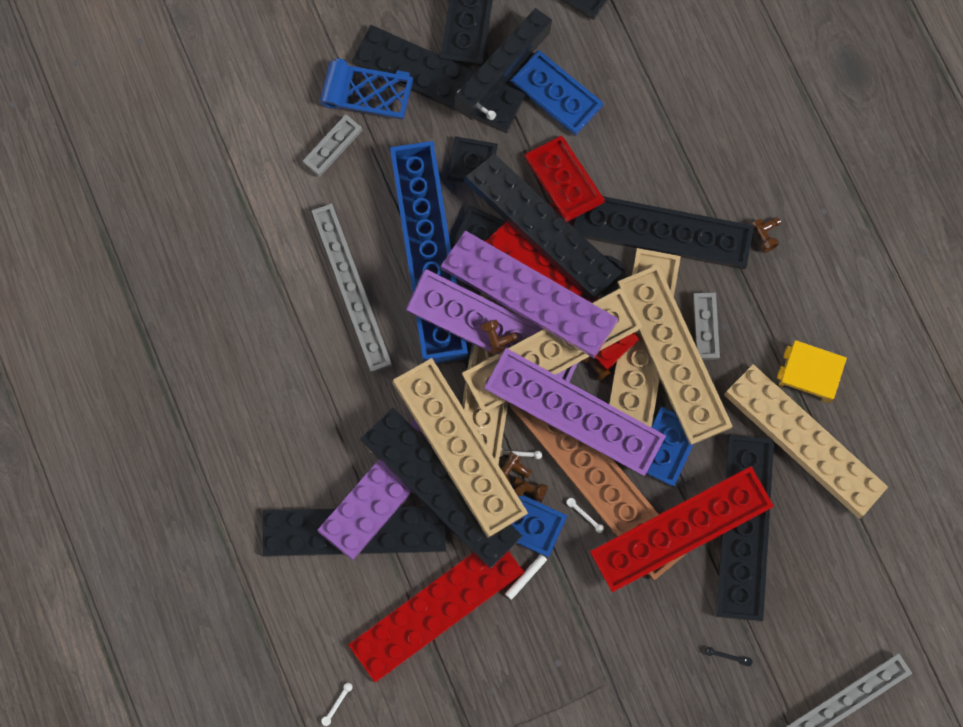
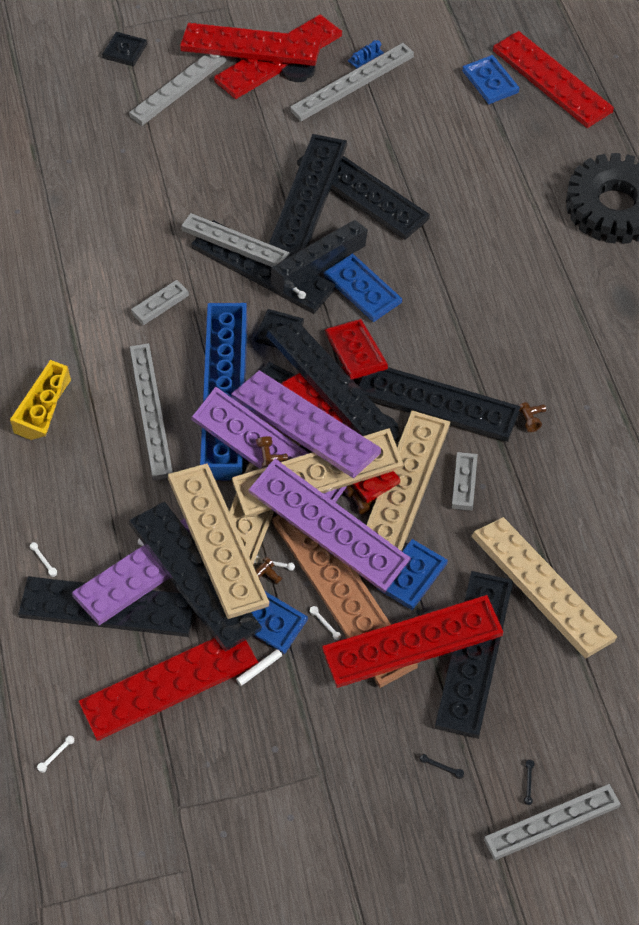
camera: 10 degrees right, 20 degrees down
(229, 305) = (37, 408): none -> yellow wedge
(286, 498) = (52, 571): none -> white hinge
(338, 84) = (177, 254): blue piece -> none
(403, 55) = (234, 240): none -> light grey plate
(538, 491) = (285, 595): reddish brown piece -> none
(675, 356) = (432, 498): tan plate -> none
(812, 370) = (557, 527): yellow panel -> none
(816, 641) = (529, 765): none -> black hinge

